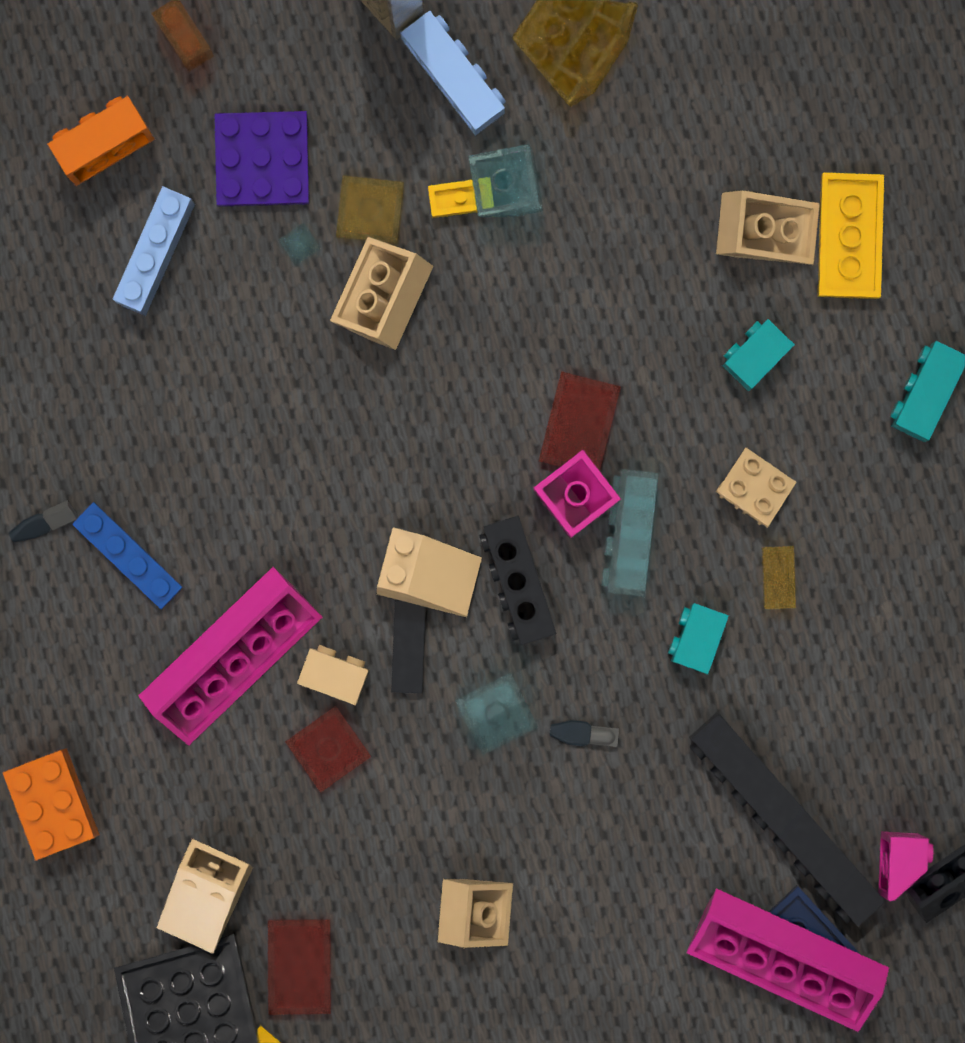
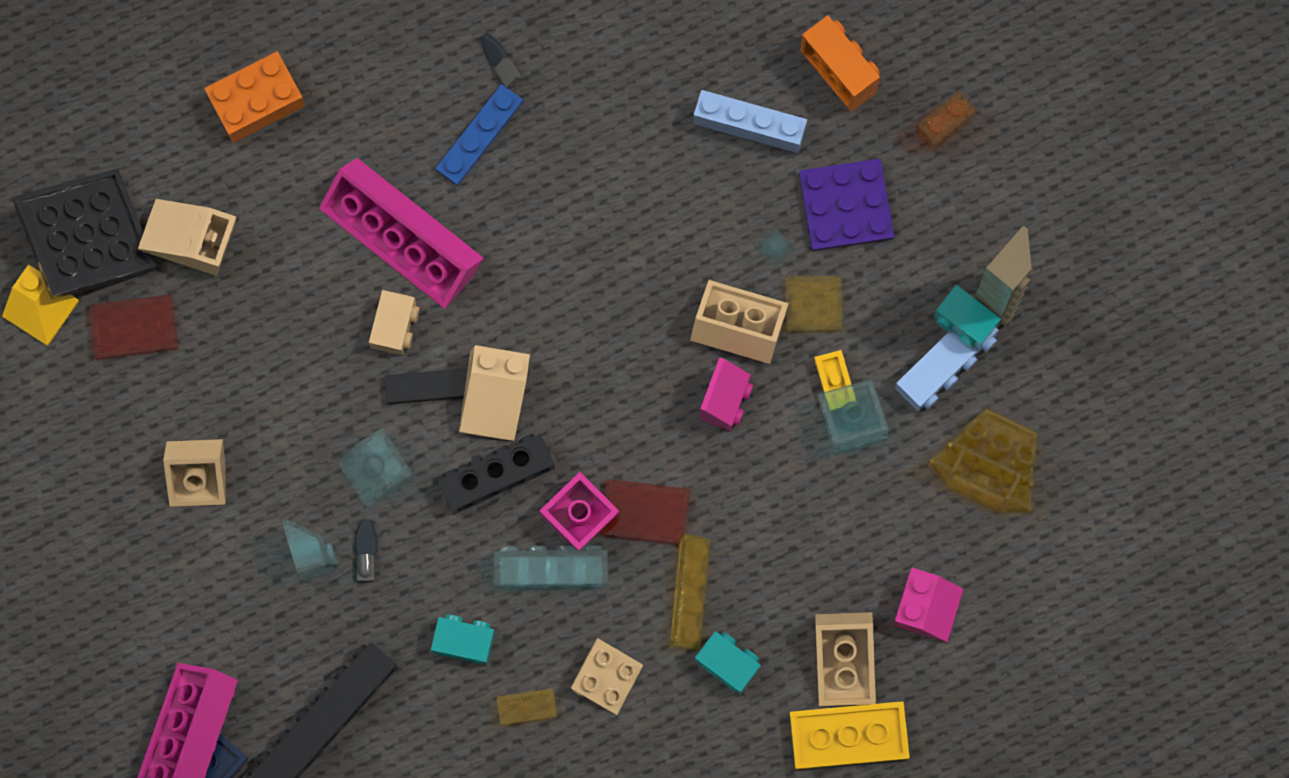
camera: 85 degrees right, 10 degrees down
(328, 749) = (328, 328): clear red tile -> none
(415, 41) = (966, 318): none -> teal brick
(464, 318) = (725, 395): none -> dark pink slope
(582, 796) = (309, 551): none -> clear light blue slope
(675, 385) = (690, 592): none -> clear yellow plate
(720, 133) = (928, 605): none -> dark pink slope

